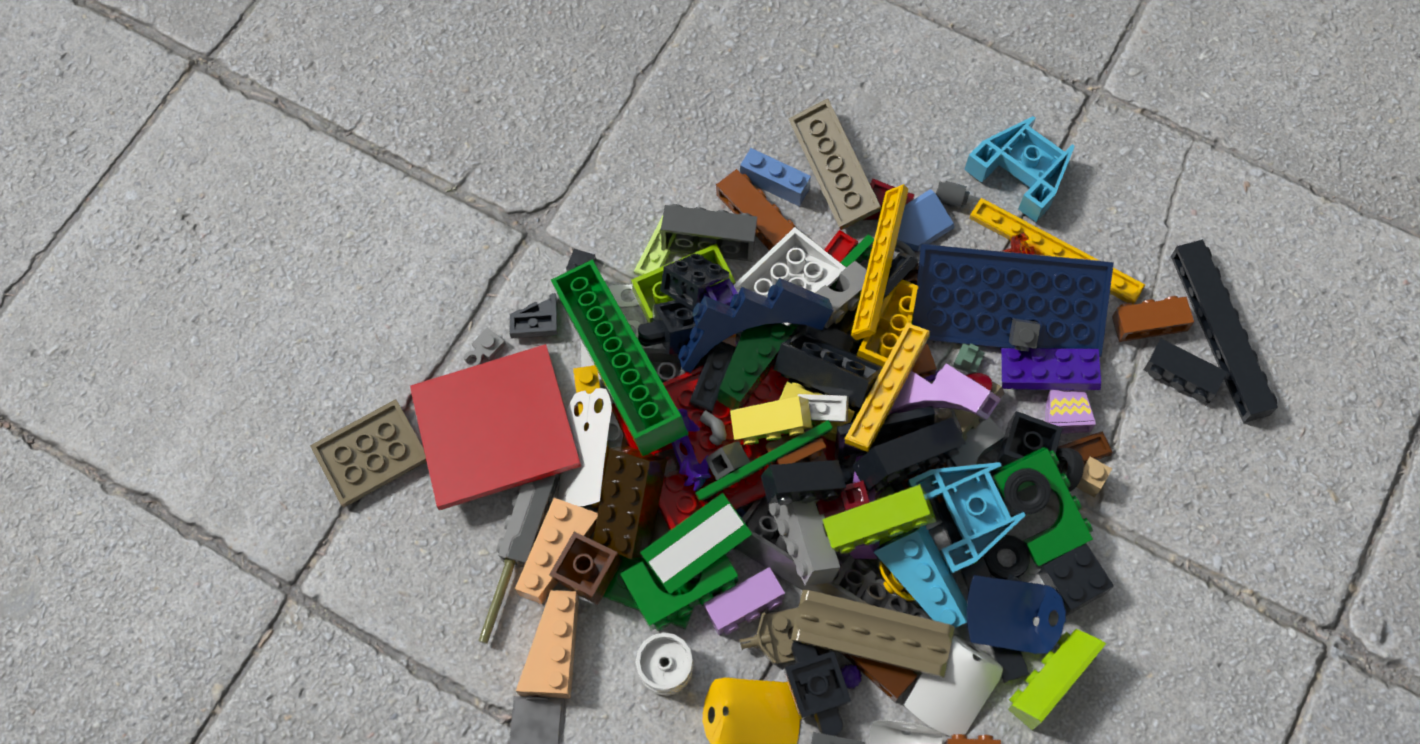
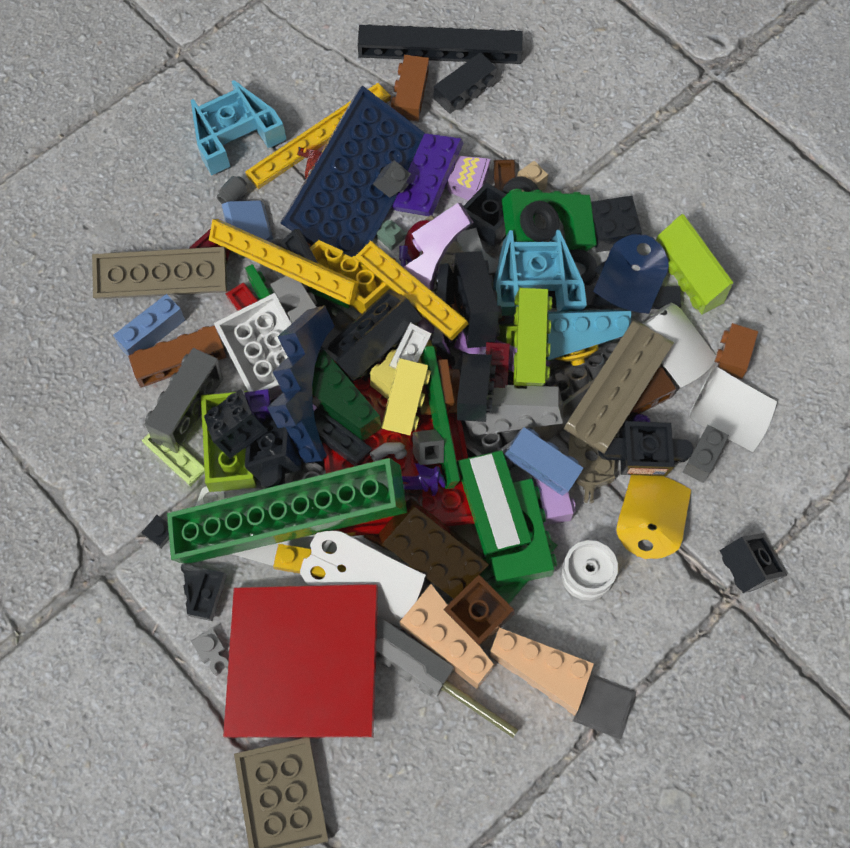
camera: 75 degrees left, 0 degrees up
(757, 579) = (543, 461): none -> medium blue brick

